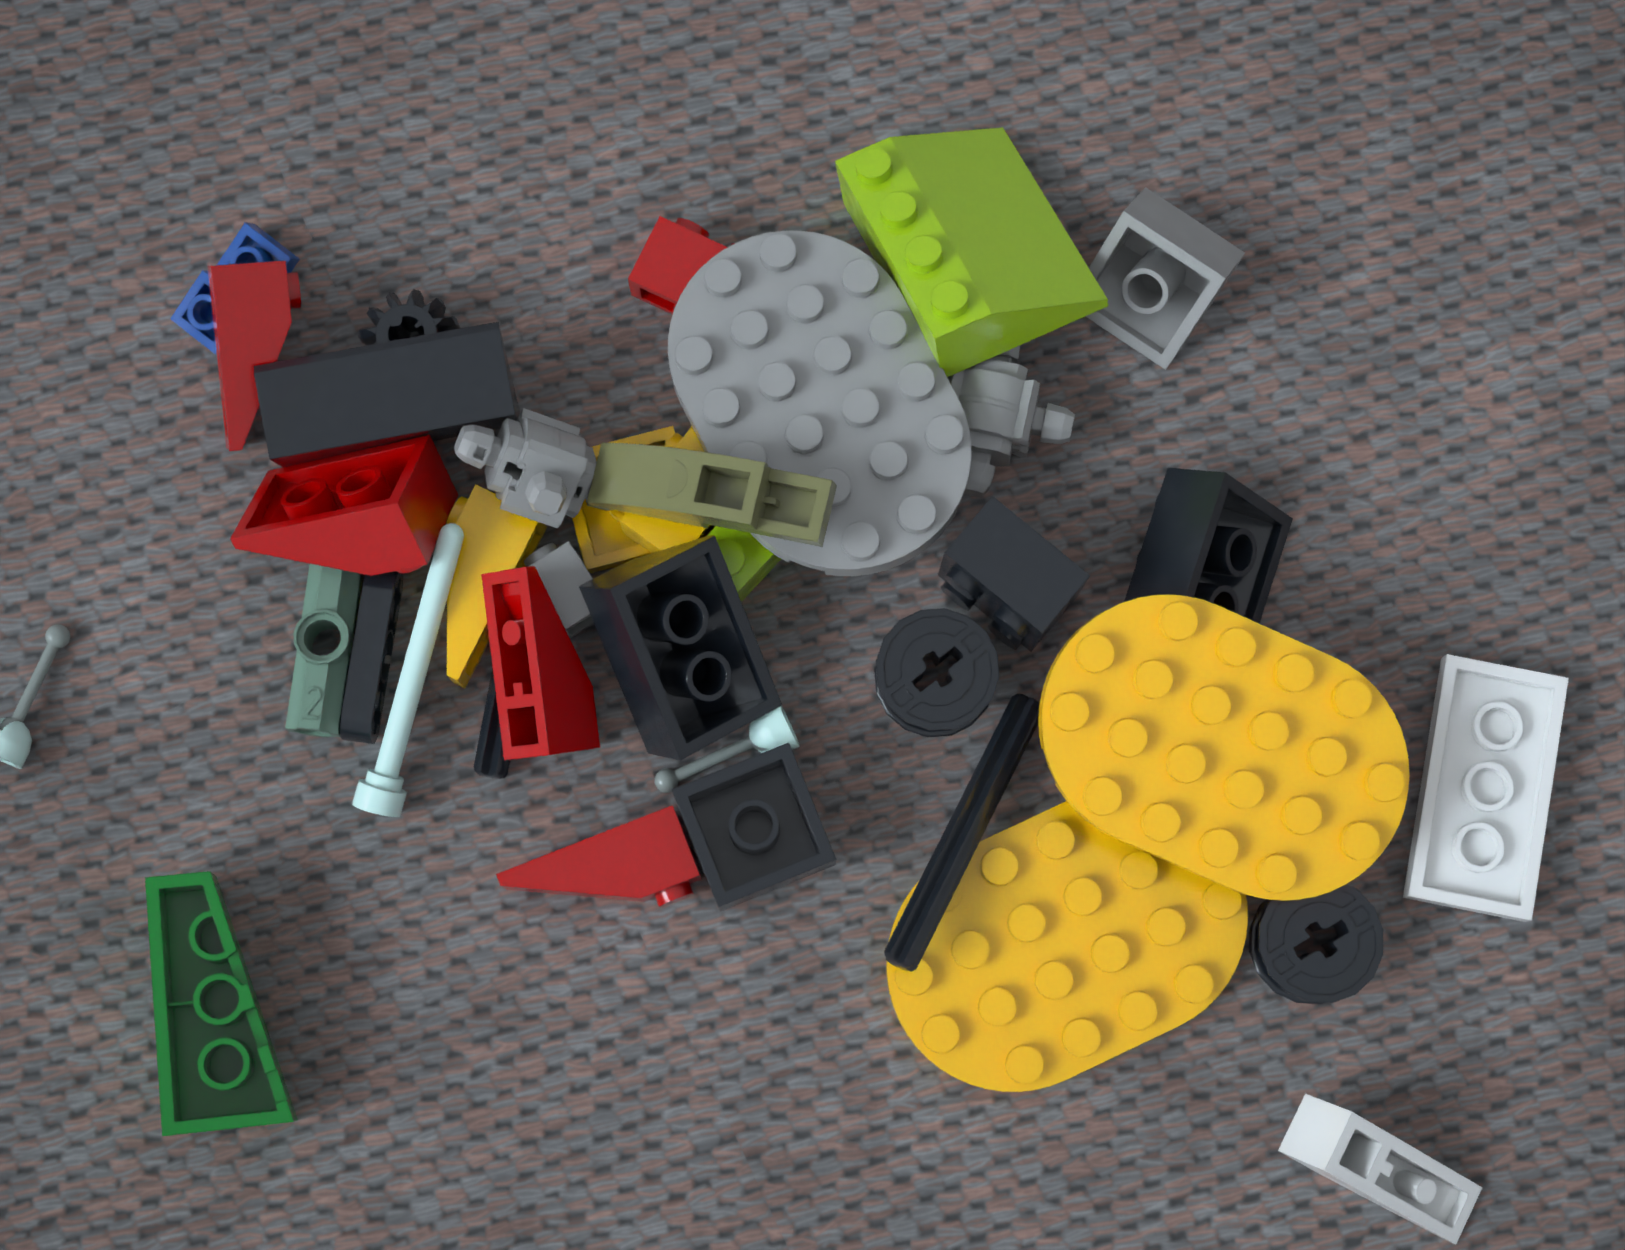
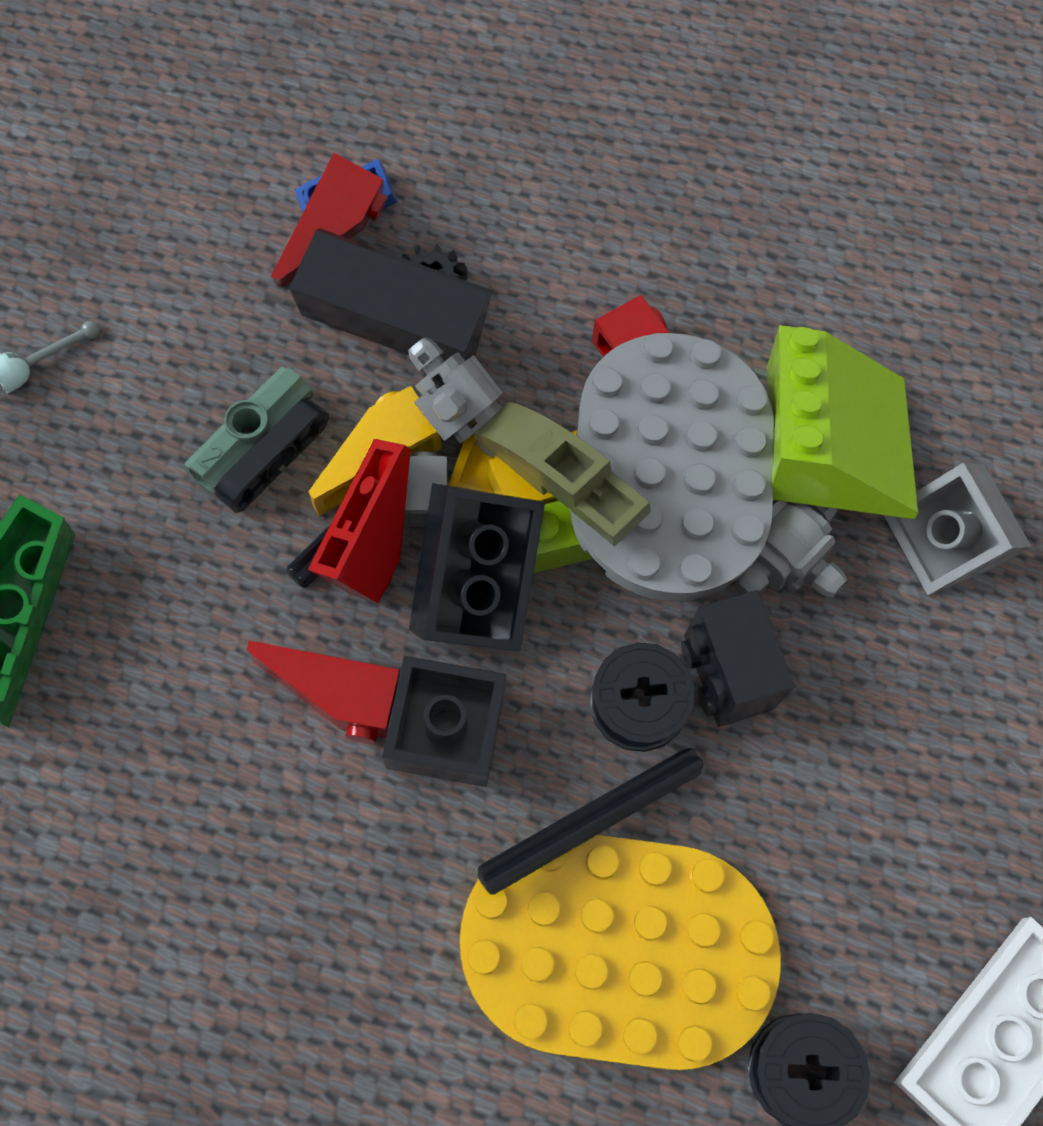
camera: 30 degrees right, 10 degrees down
(353, 510) = (324, 357): red slope -> none
(382, 788) = (219, 541): light aqua piece -> none
(764, 734) = (497, 661): hinge -> none
(1211, 543) = (876, 748): black slope -> none
(1224, 747) = (825, 879): yellow plate -> none

